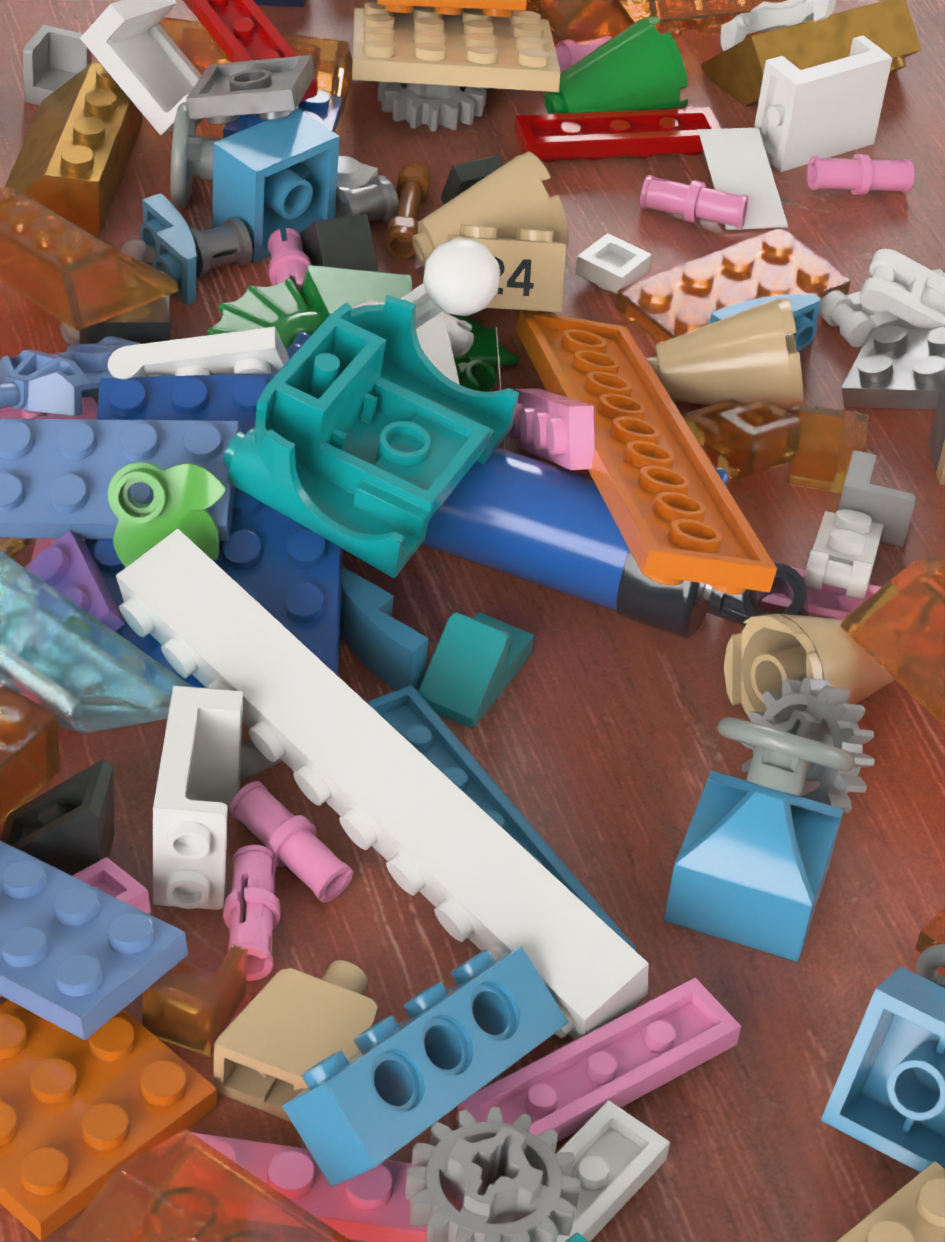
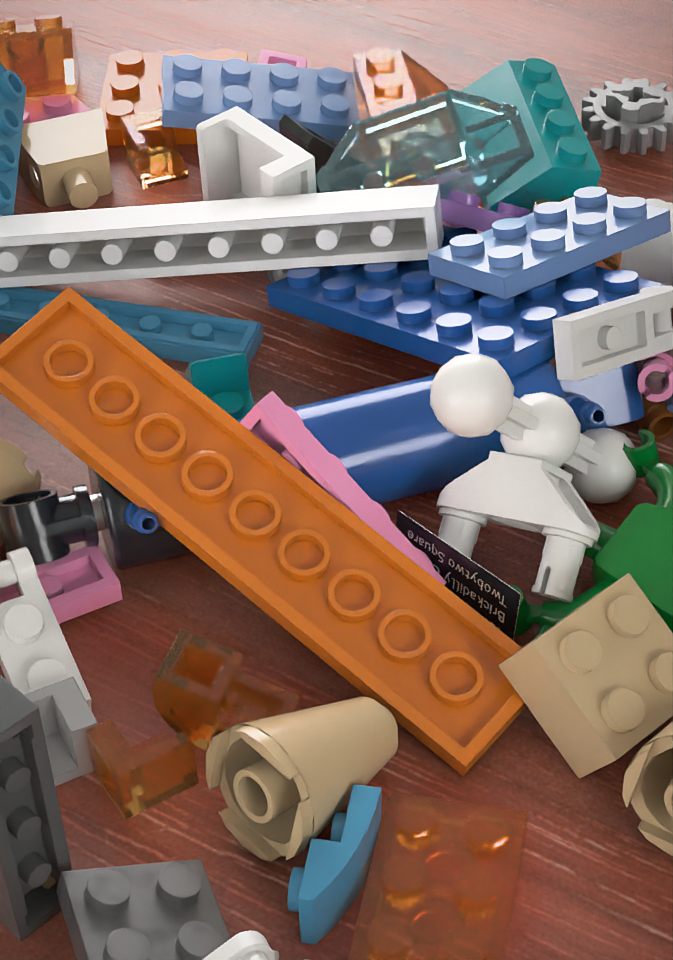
camera: 145 degrees right, 0 degrees up
(178, 503) = (473, 209): bright green plate -> none
(253, 908) = (162, 186): bright pink pin -> none
(366, 435) = (401, 318): teal piece -> none
(377, 639) = (292, 354): dark azure slope -> none
(613, 263) = (573, 843): white plate -> none

